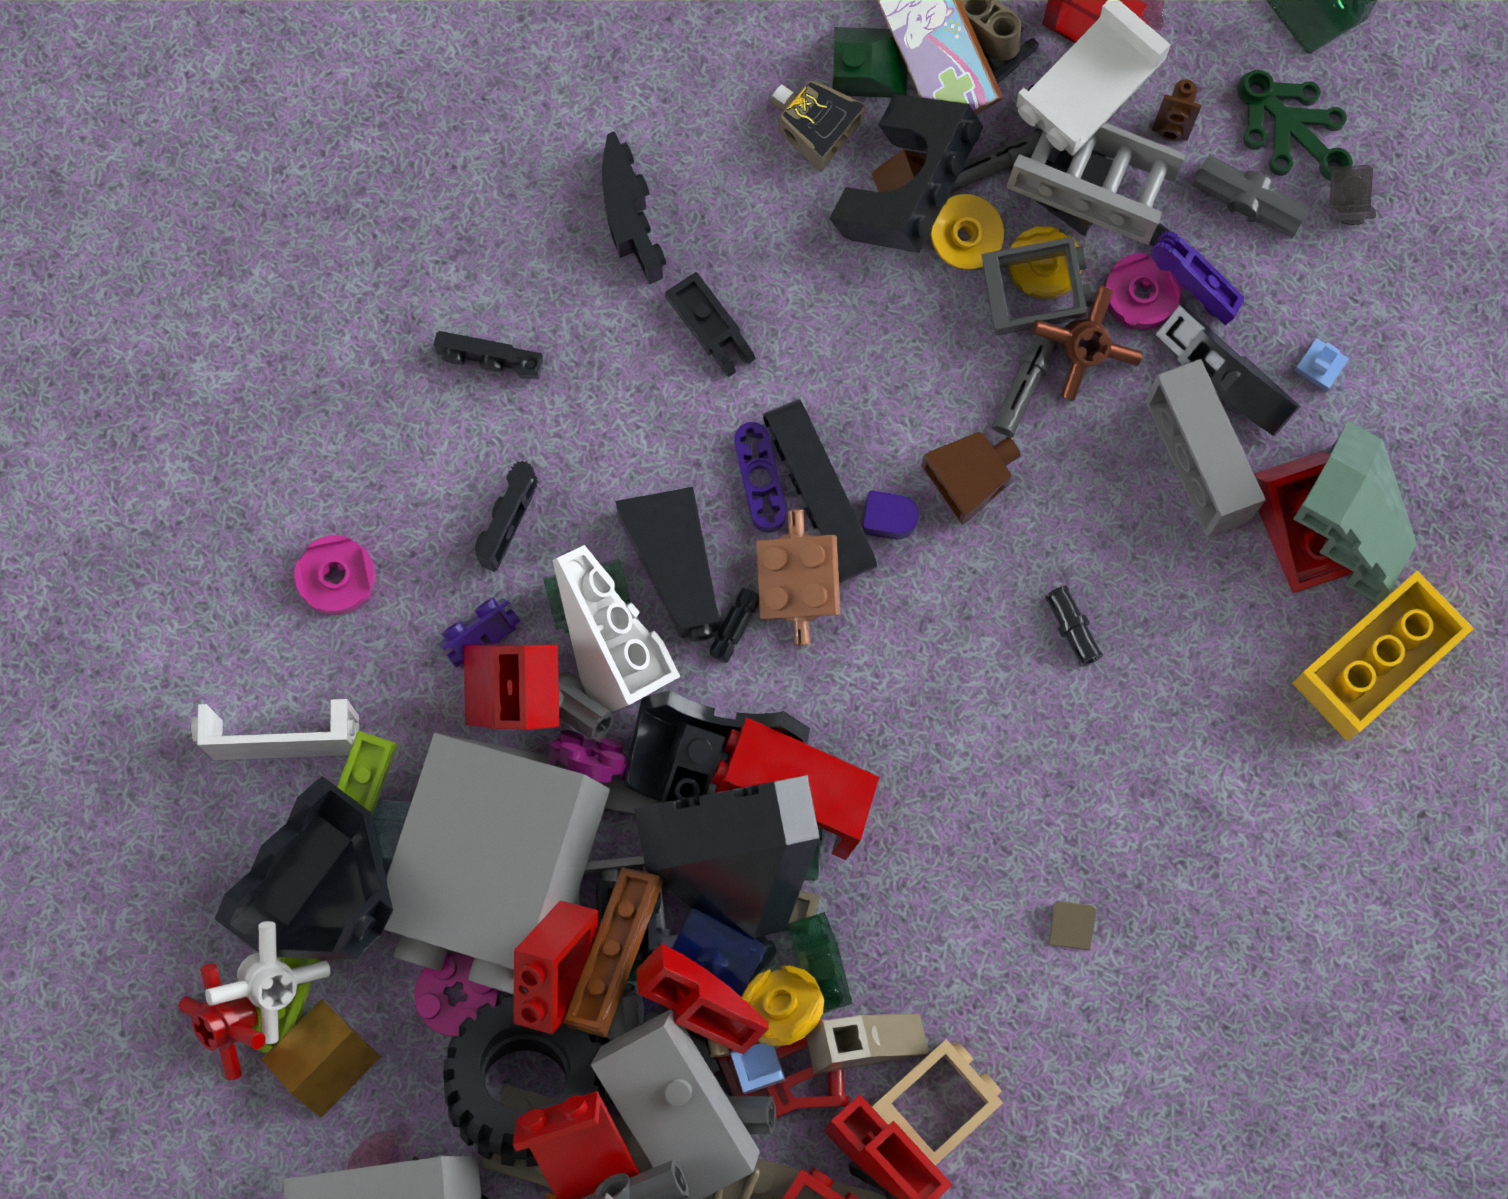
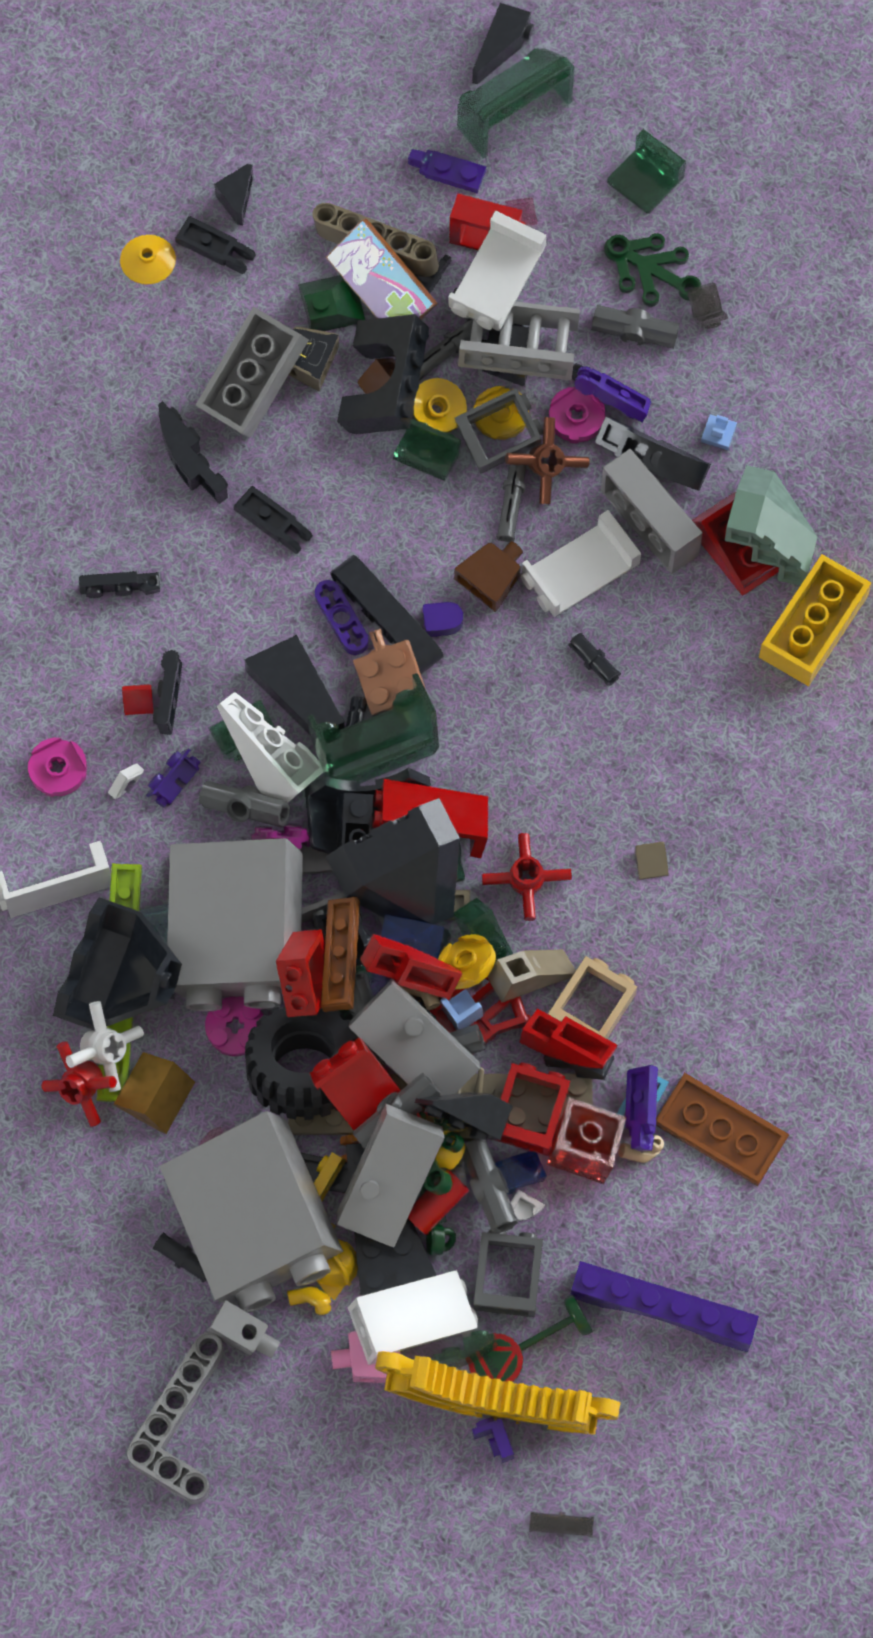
camera: 15 degrees left, 5 degrees down
(413, 615) = (124, 777): none -> white tile
(464, 514) = (137, 699): none -> red slope
(511, 686) = (210, 802): red slope -> none
(738, 124) = (252, 372): none -> light grey brick
(757, 660) = (381, 741): none -> clear green windscreen
(896, 917) = (528, 886): none -> red bar
(936, 286) = (428, 450): none -> clear green bracket
(1092, 495) = (581, 566): none -> white panel
(1178, 112) = (565, 281): reddish brown hinge -> none

